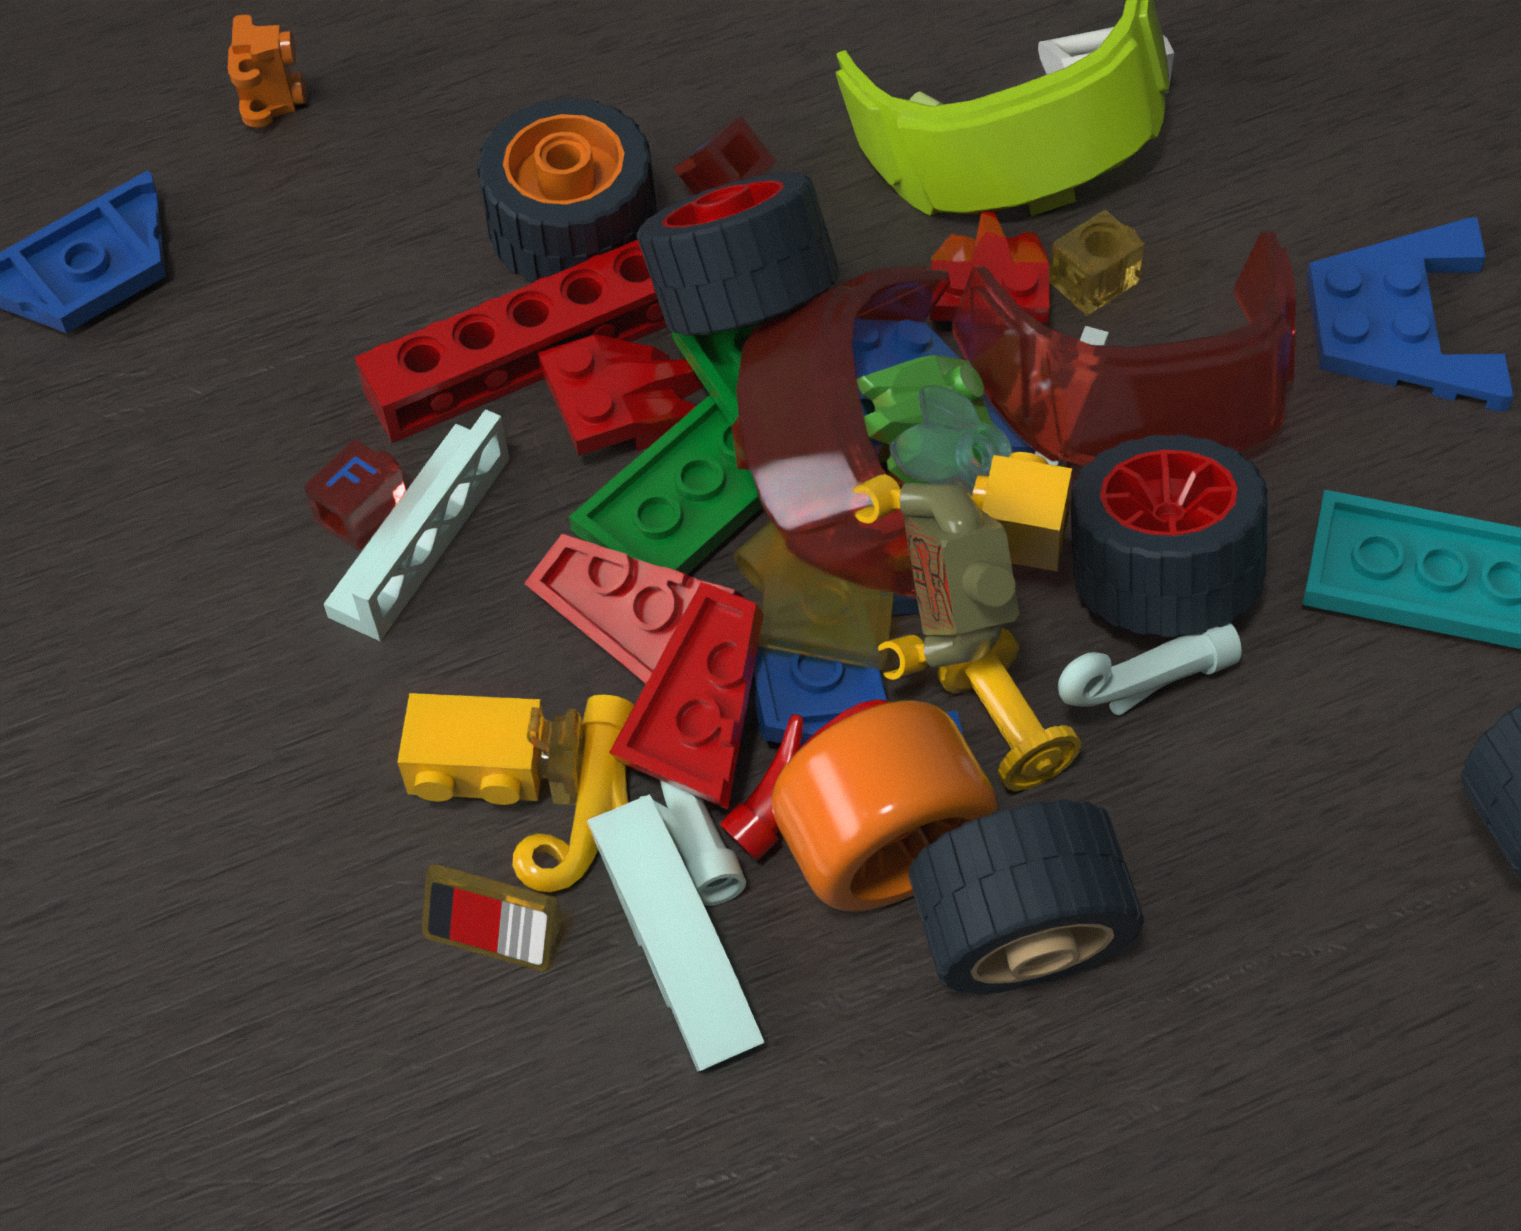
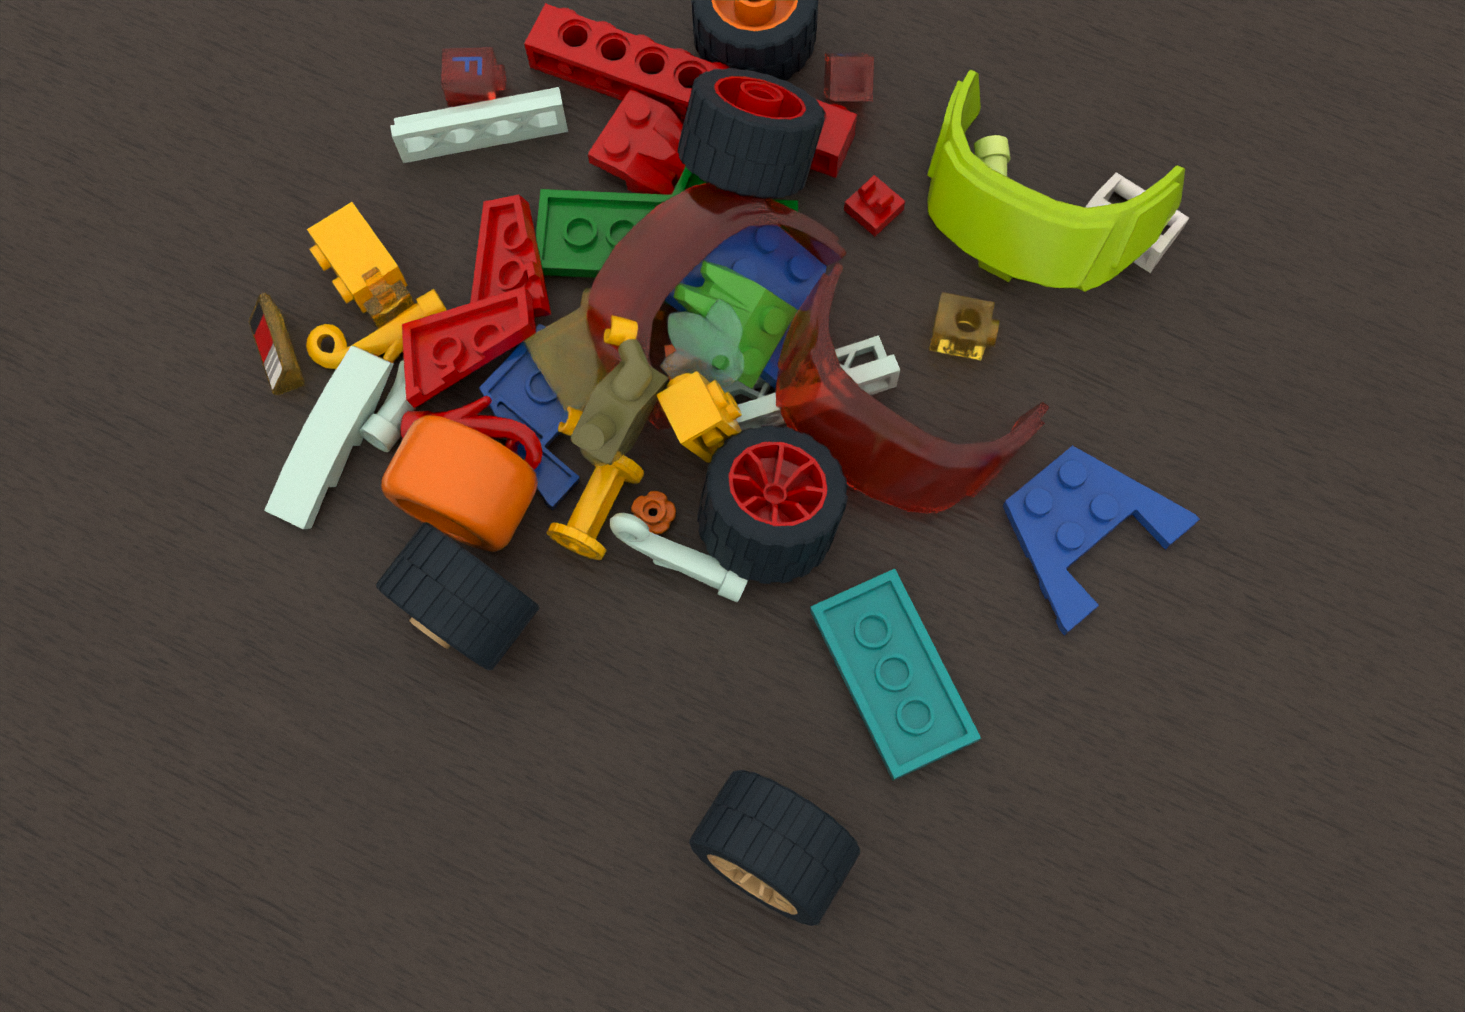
camera: 50 degrees right, 15 degrees up
(880, 244) = (874, 205): none -> red tile
(1015, 263) = (902, 275): red plate -> none
(1046, 662) = (665, 511): none -> orange plate

